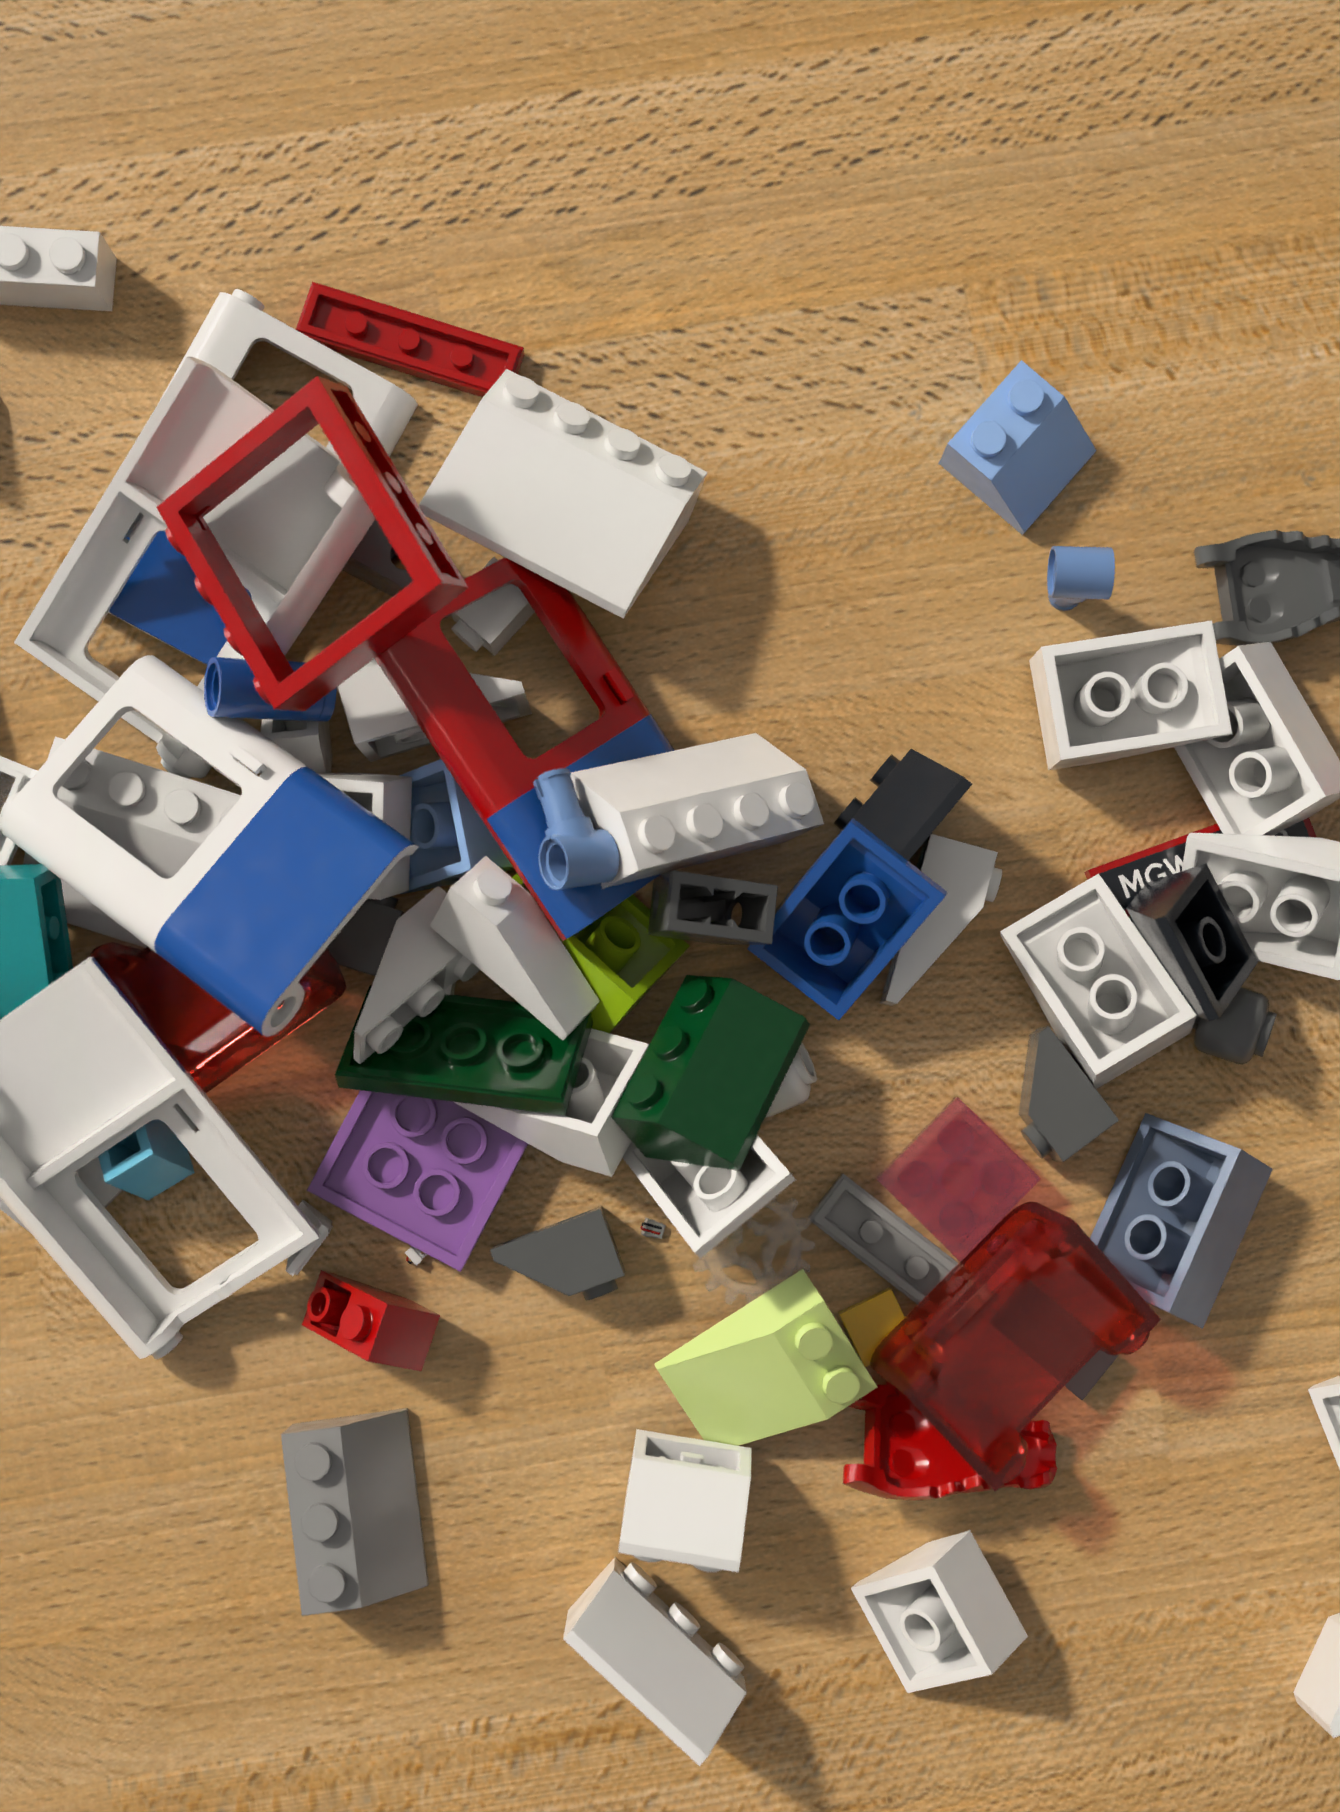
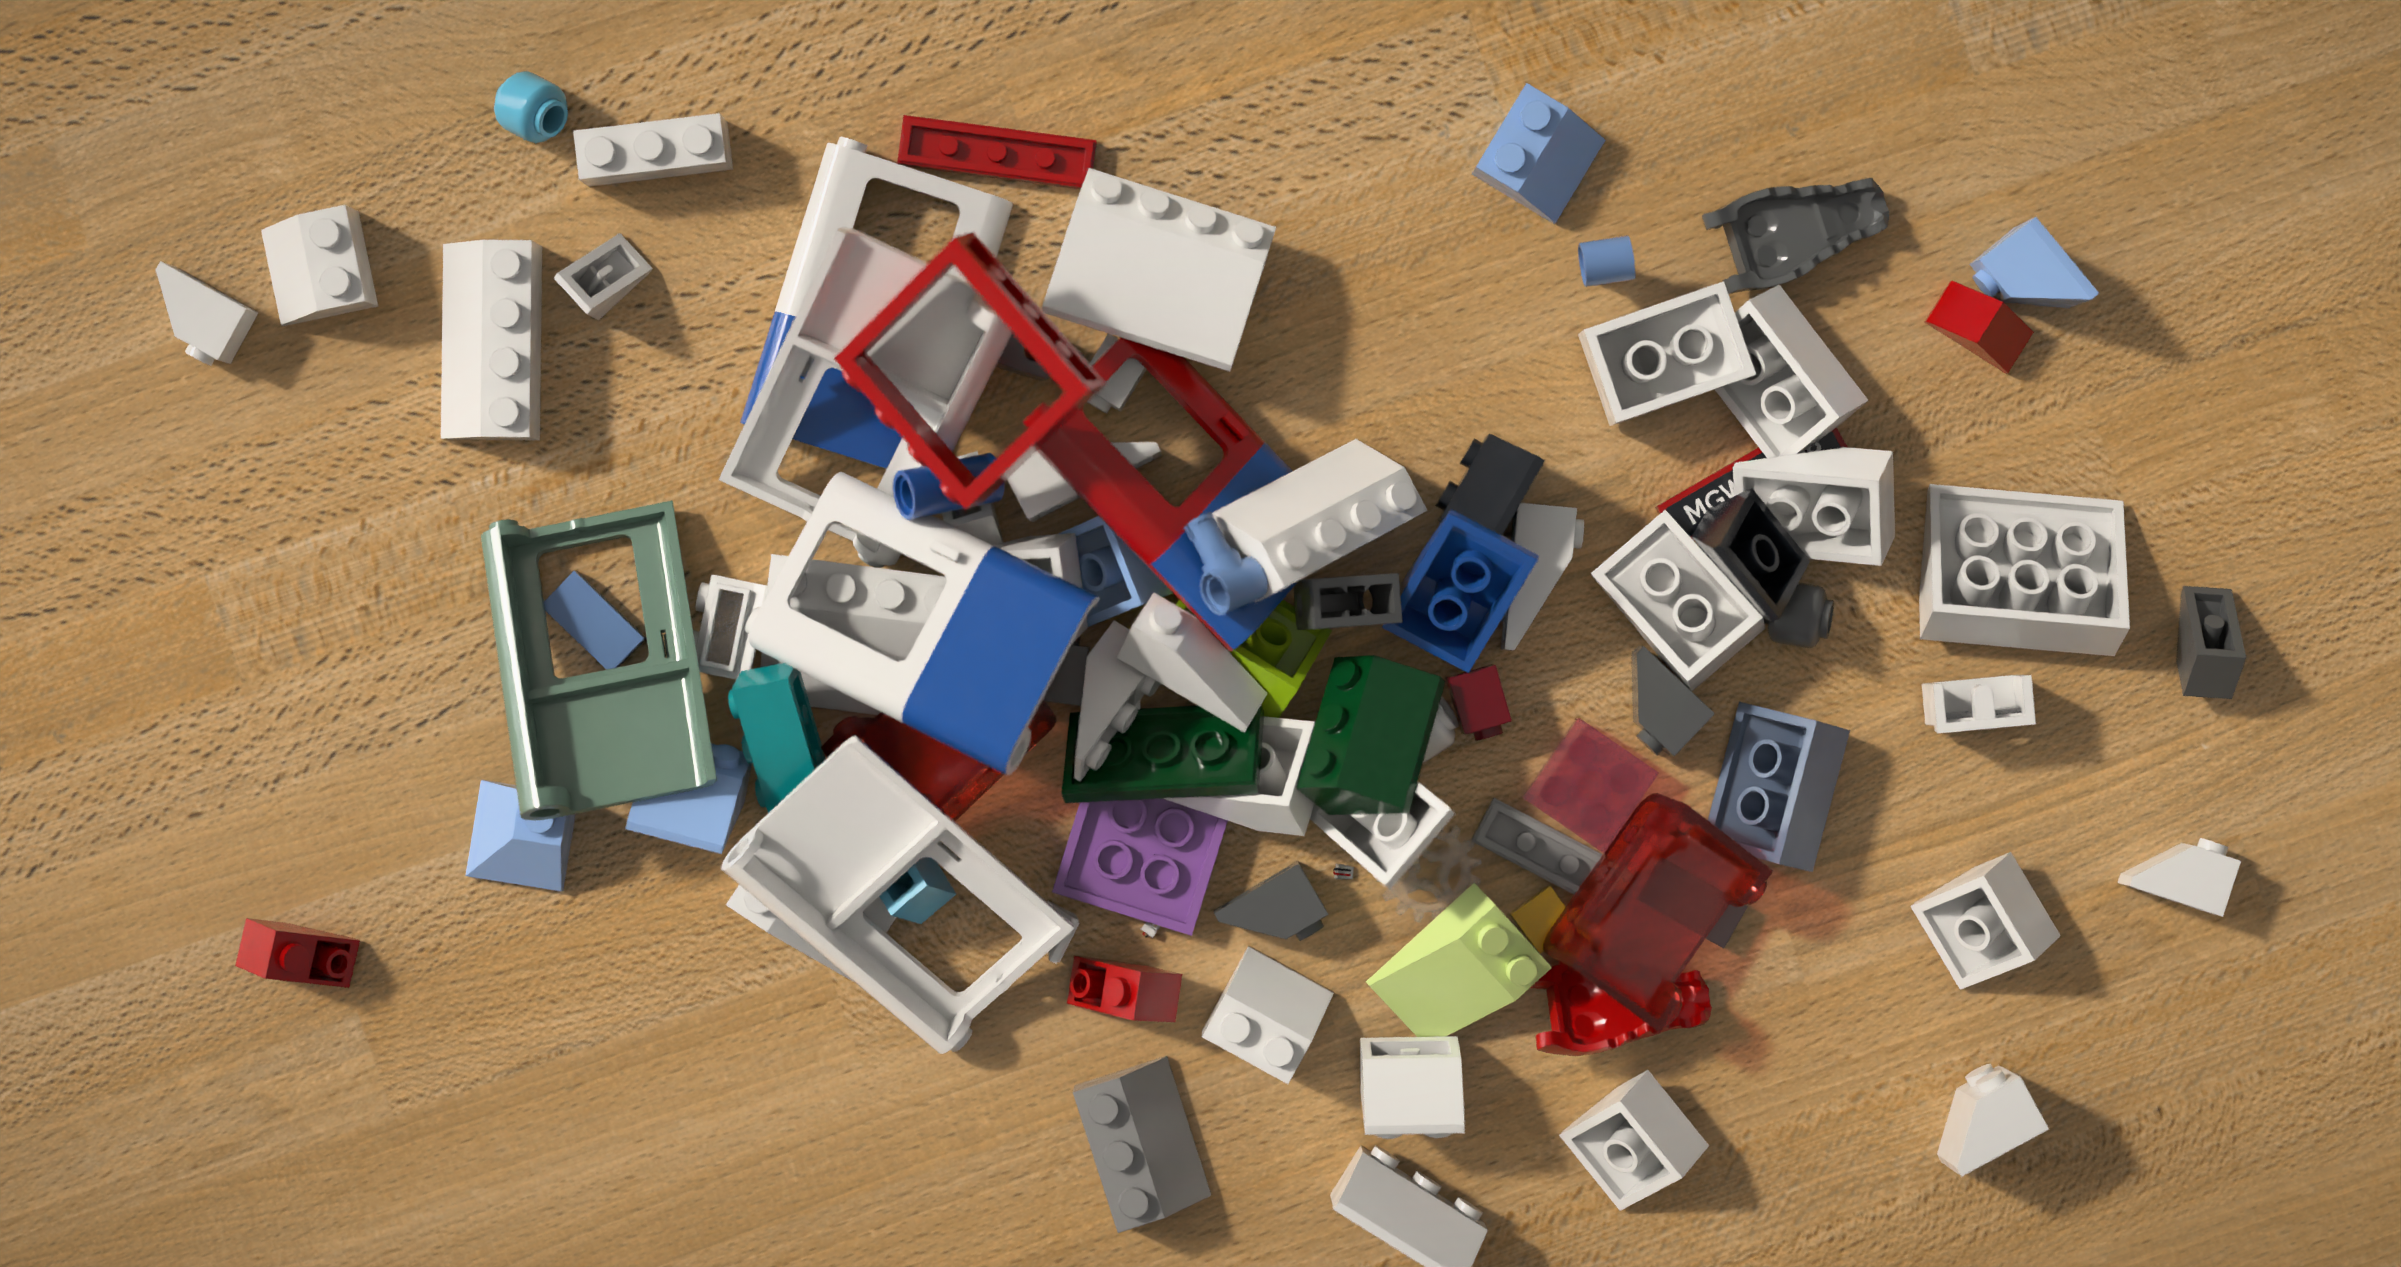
camera: 10 degrees left, 5 degrees up
(532, 1383) = (1267, 1015): none -> white slope
(845, 1058) = (1479, 702): none -> dark red brick

